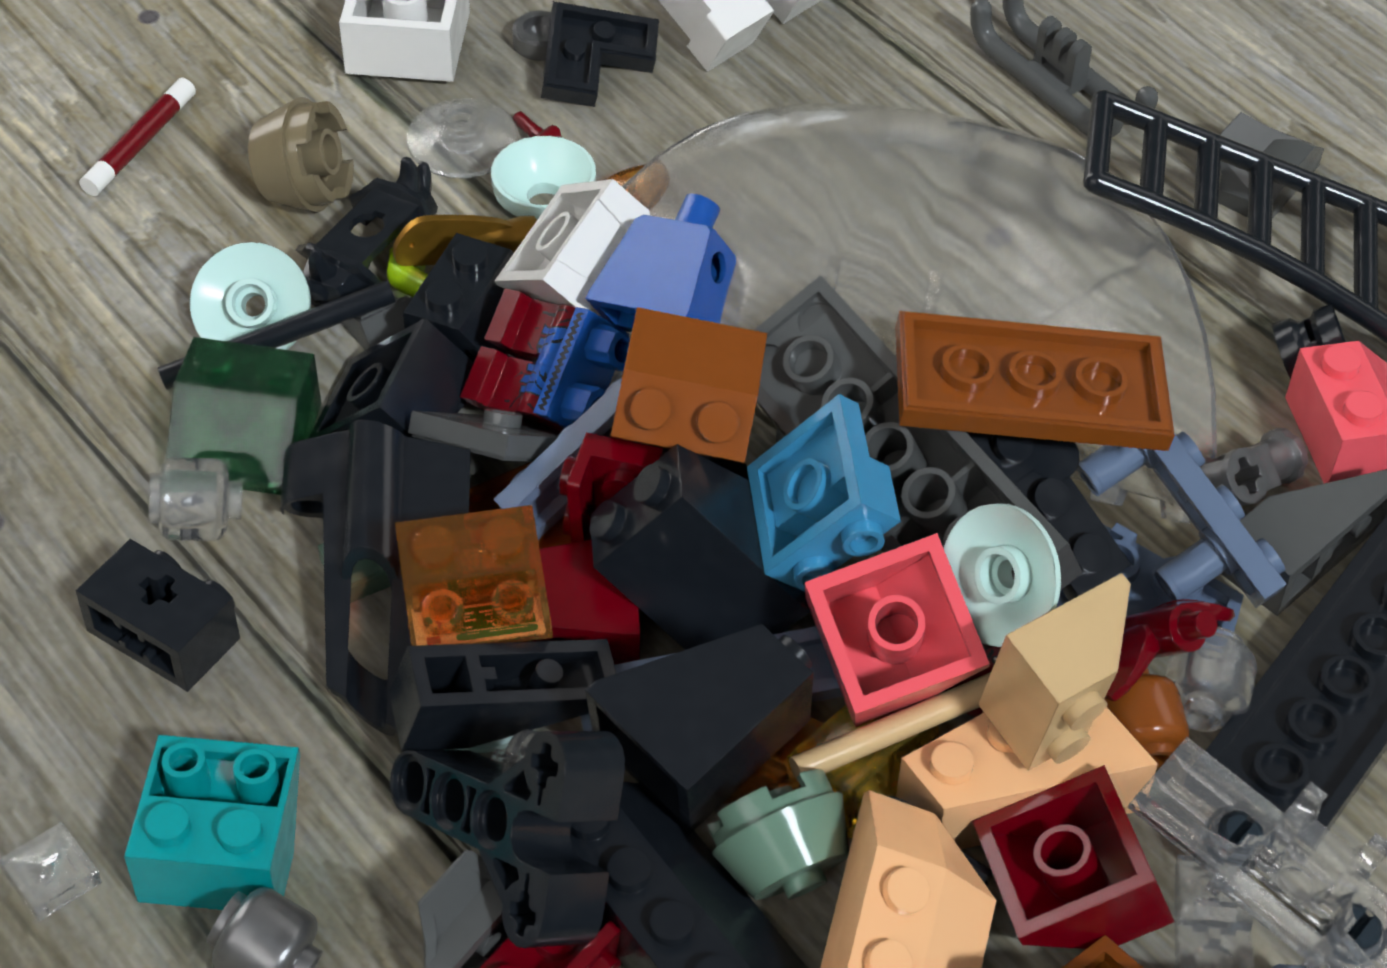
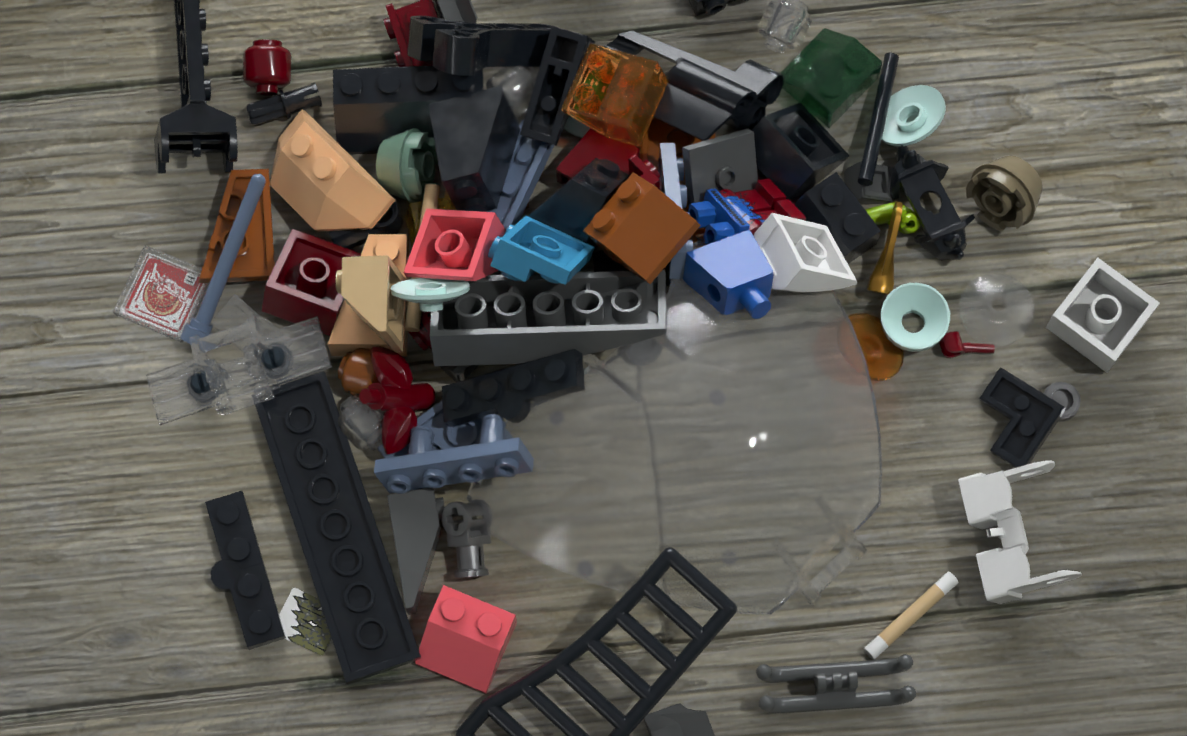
camera: 125 degrees right, 25 degrees up
(137, 137) = (1100, 131): dark red bar -> none
(914, 51) = (911, 615): none -> tan bar
(1032, 381) = (531, 386): dark orange tile -> none
(1317, 330) = (530, 640): black wheel -> none

